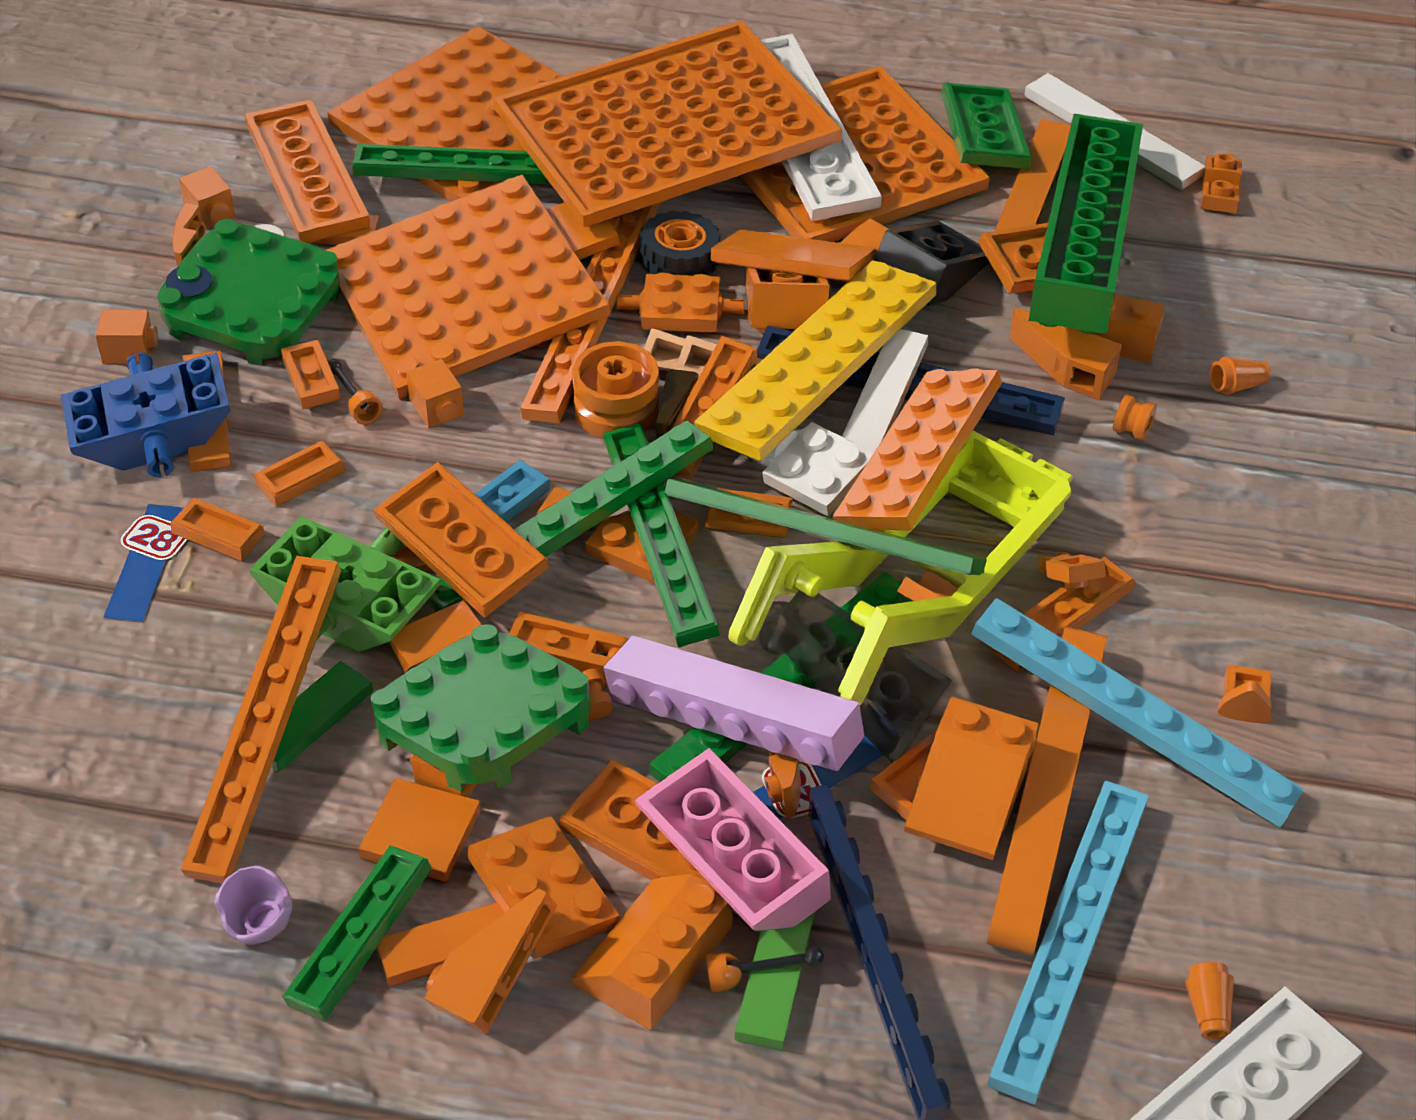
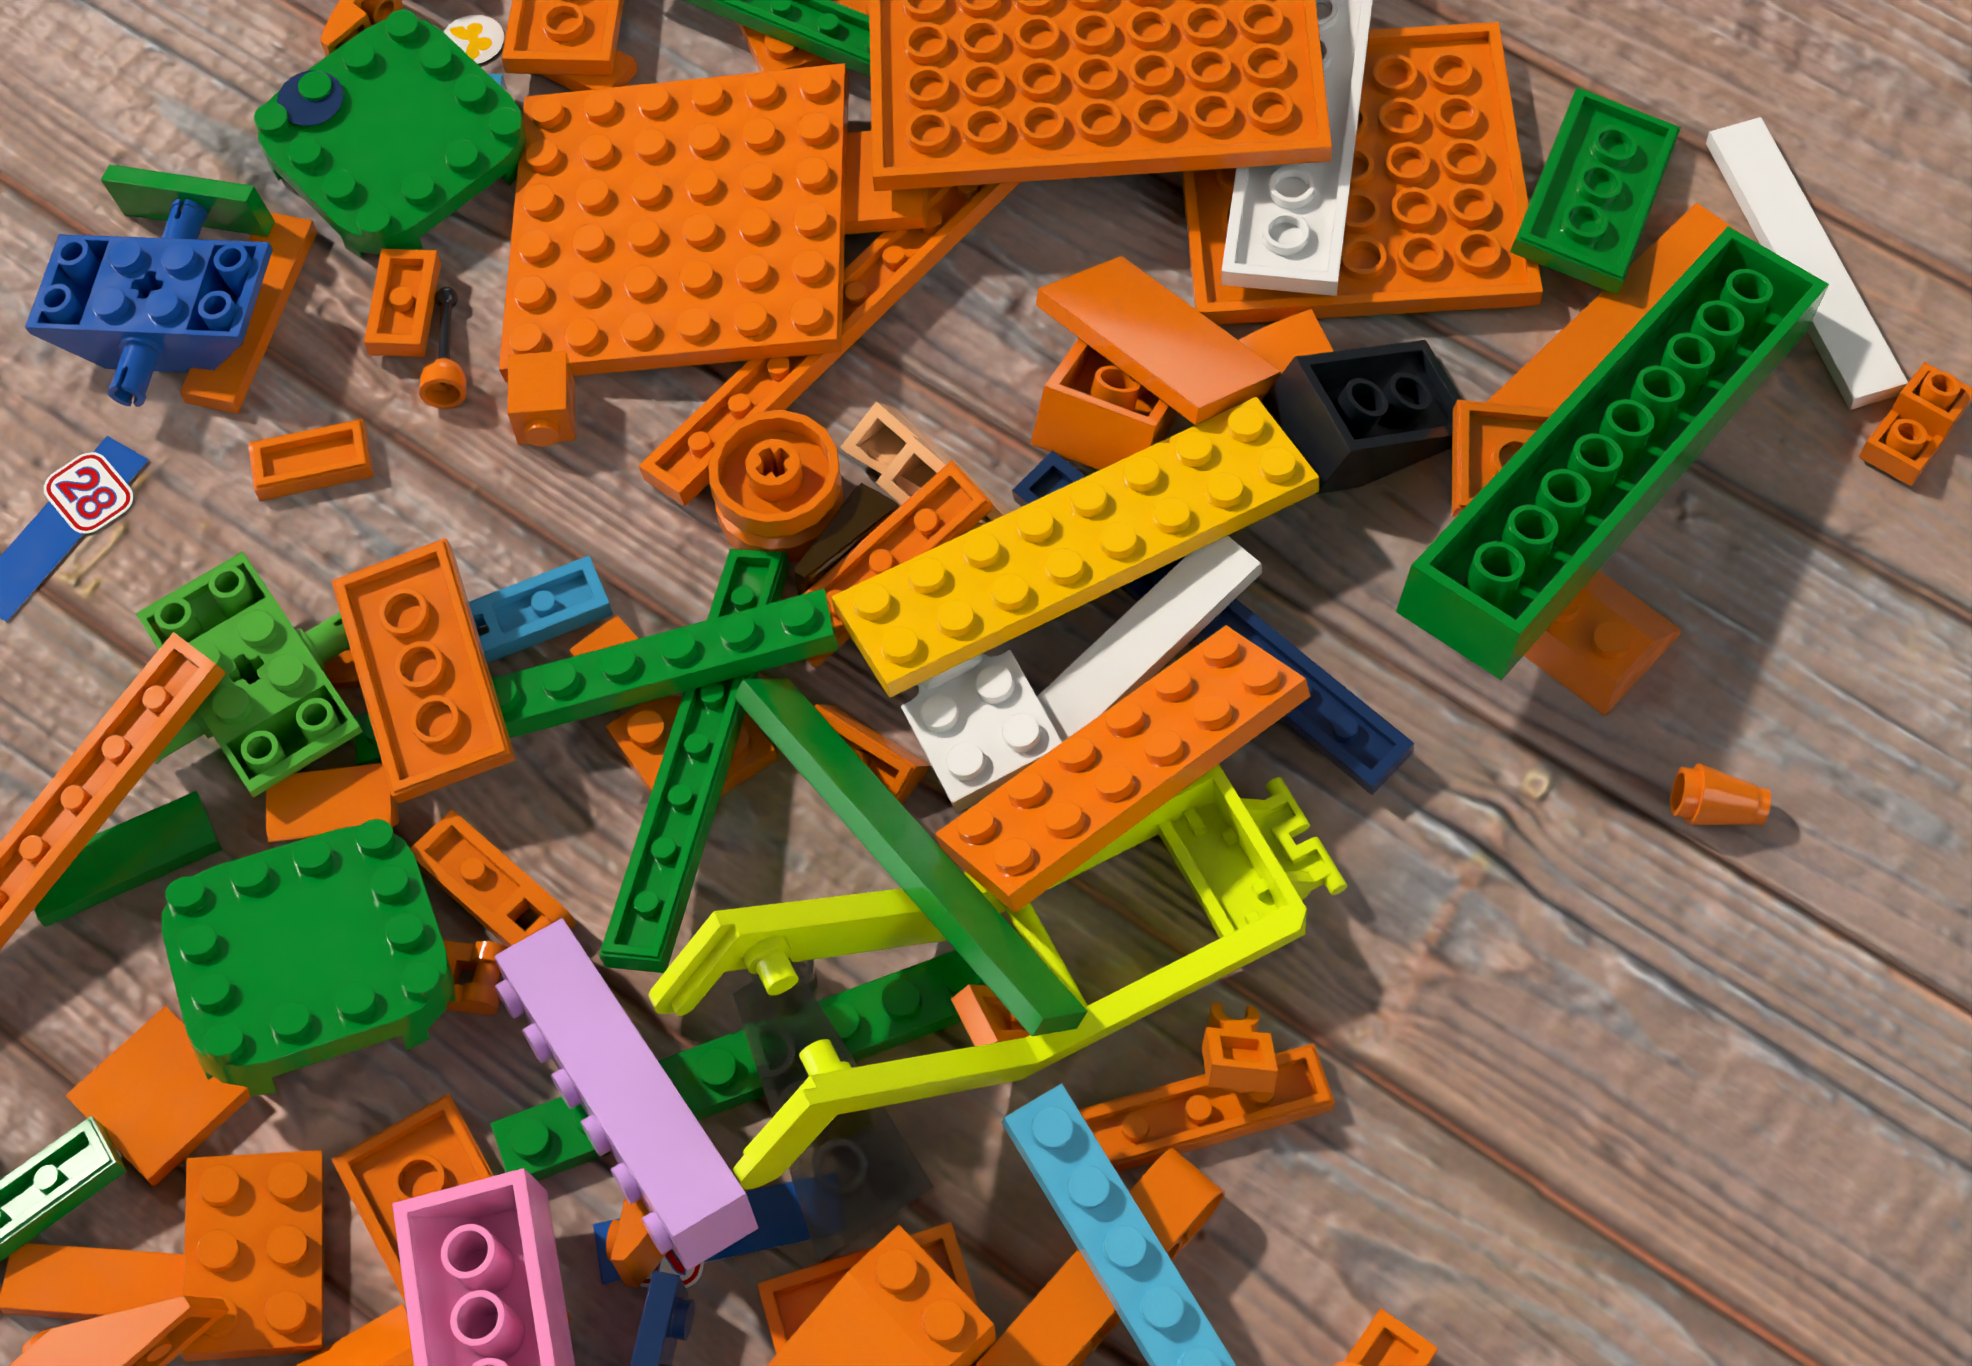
camera: 30 degrees right, 15 degrees up
(109, 361) = (151, 193): none -> green tile
(124, 334) = (202, 149): orange brick -> none
(217, 529) = (163, 513): orange tile -> none
(678, 244) = (1008, 253): black wheel -> none
(680, 303) = (963, 358): orange plate -> none
(1069, 356) = (1480, 702): orange slope -> none
(1134, 417) = (1504, 816): orange wheel -> none

